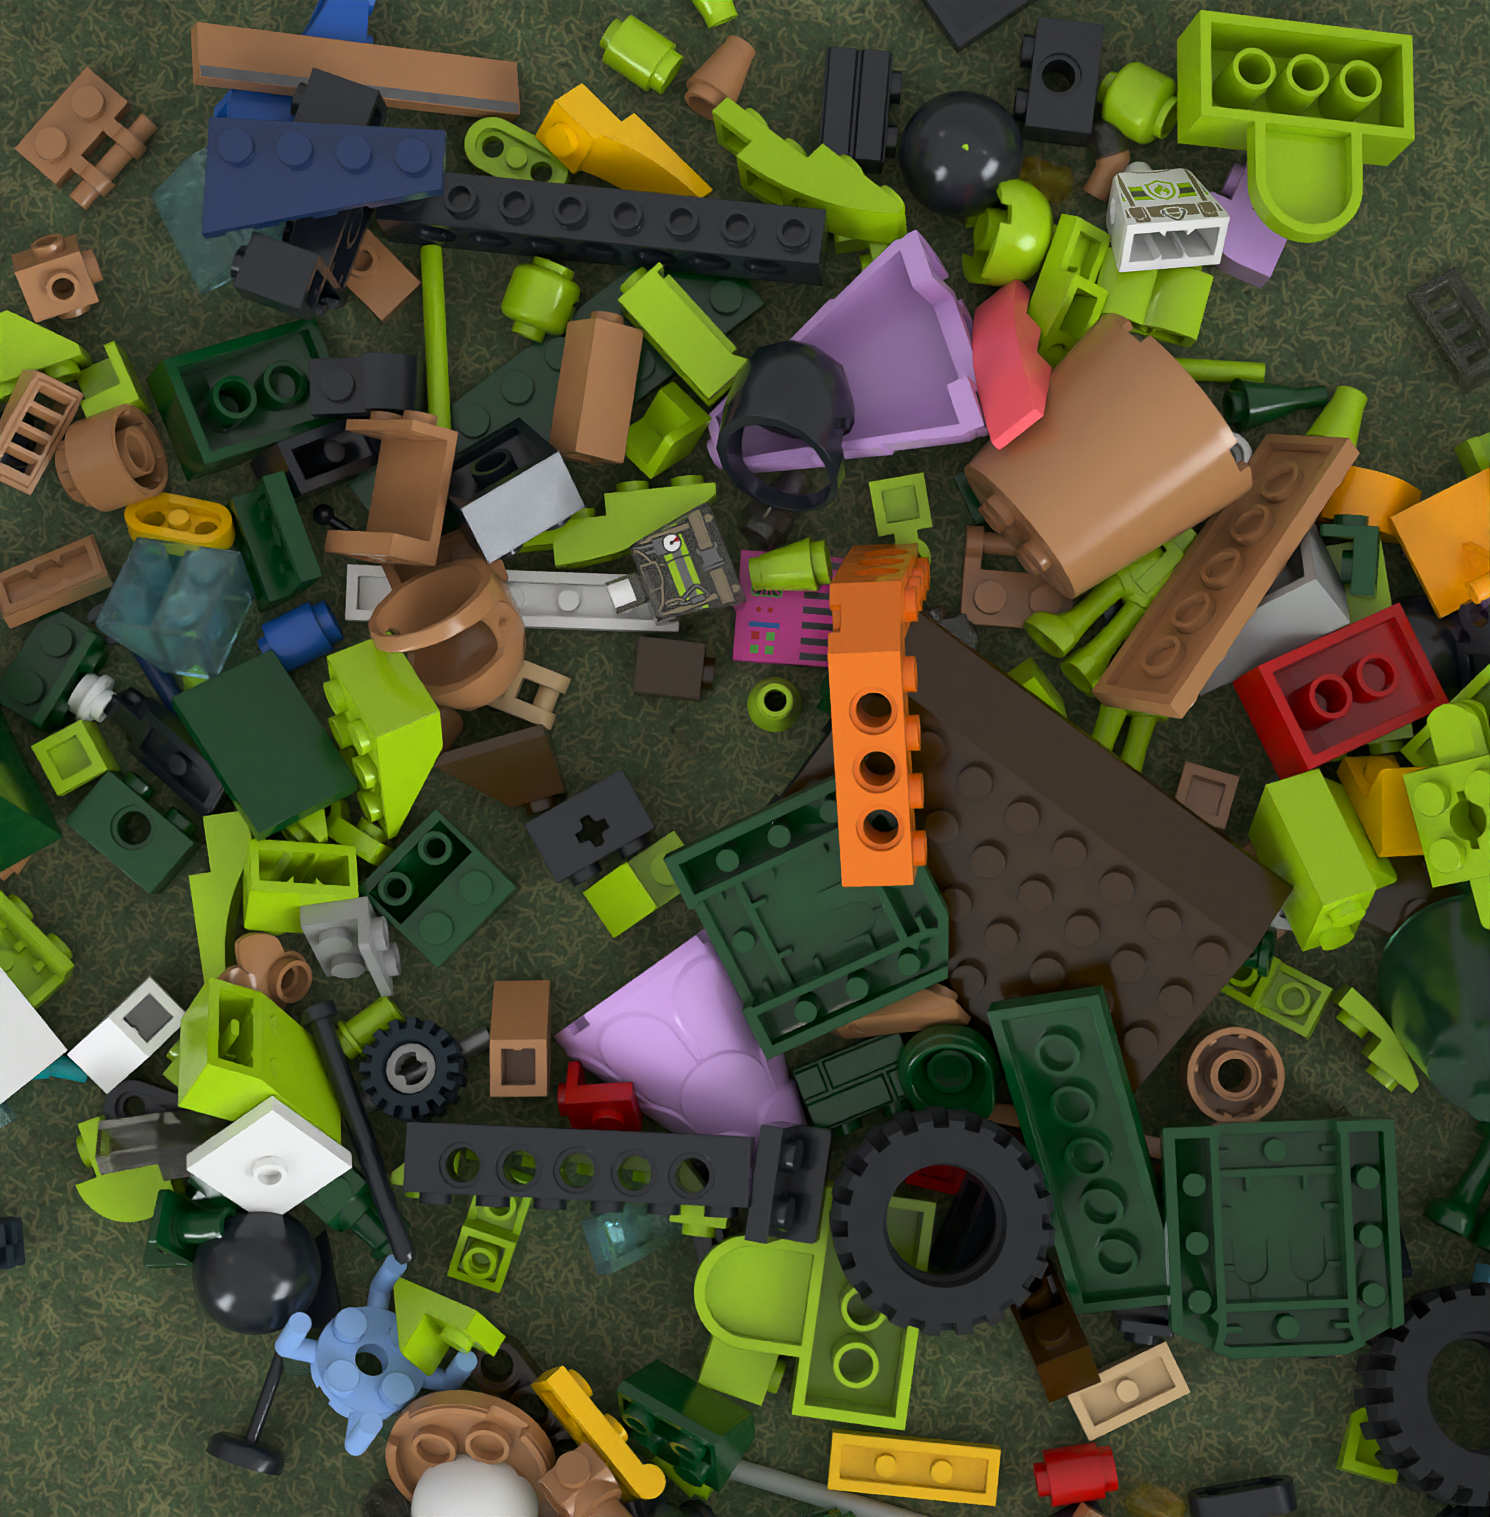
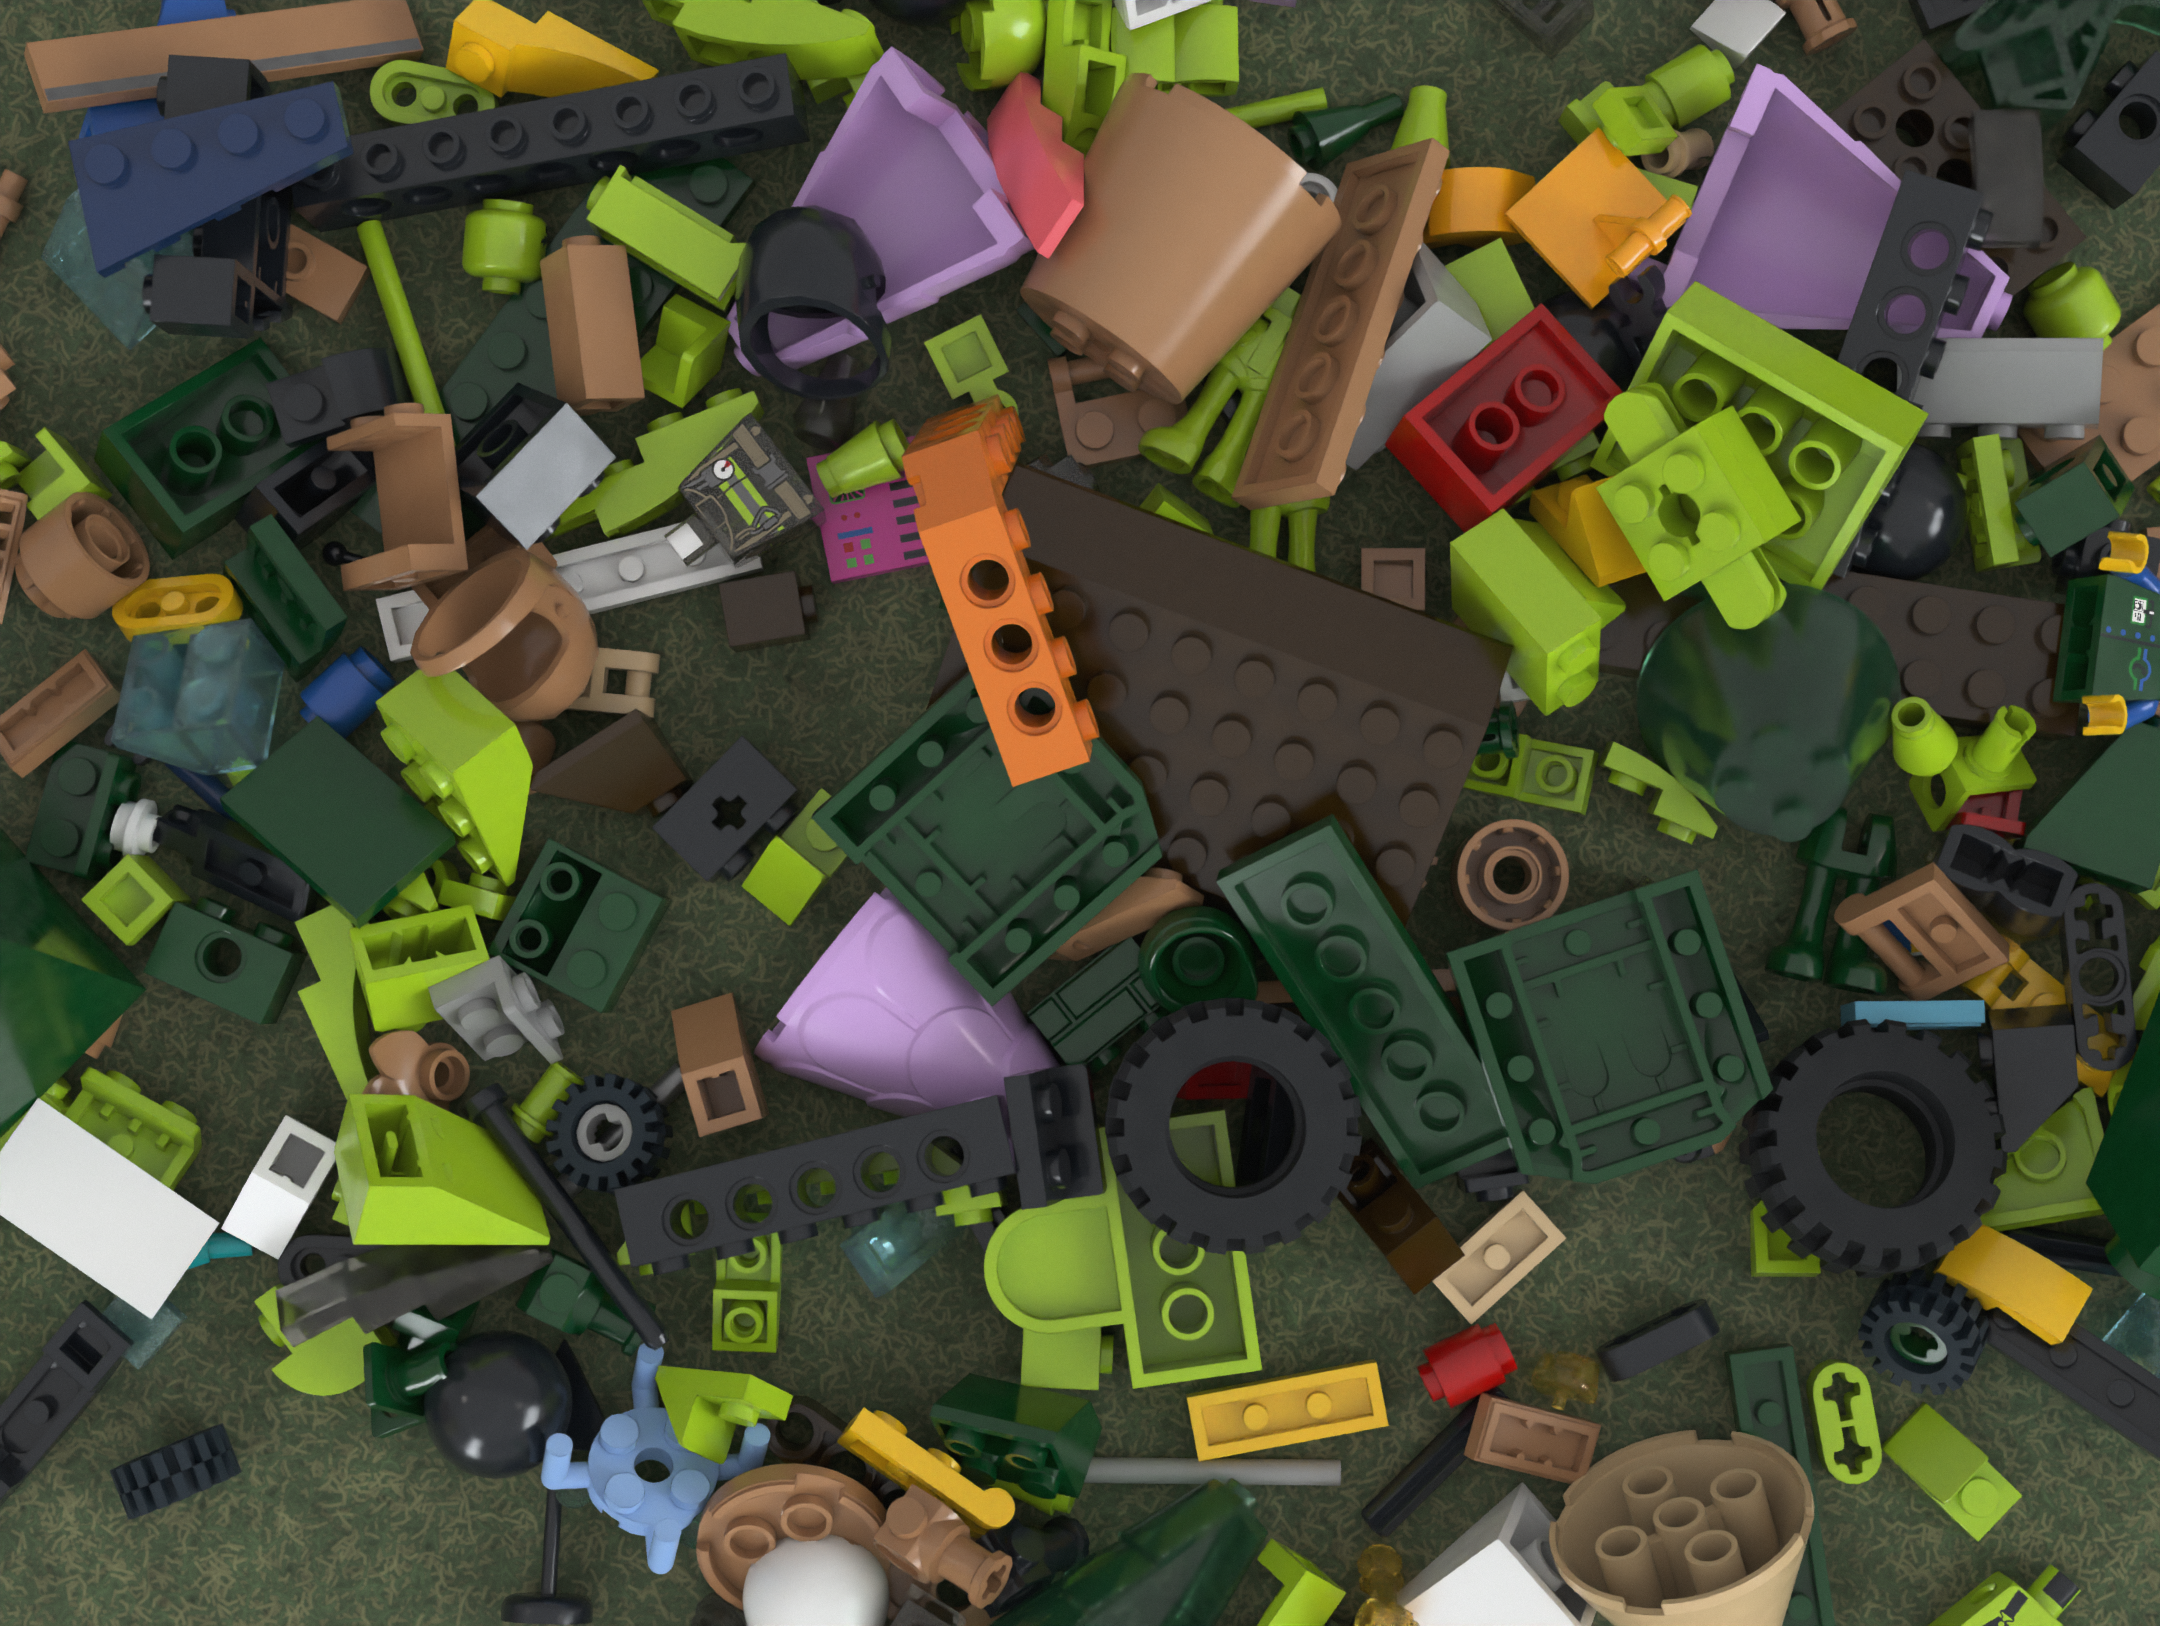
camera: 15 degrees left, 0 degrees up
(269, 1159) = (473, 1275): white plate -> none
(598, 1105) = (822, 1111): red bracket -> none
(768, 719) = (897, 633): lime cone -> none
(1361, 564) = (1487, 273): dark green bracket -> none

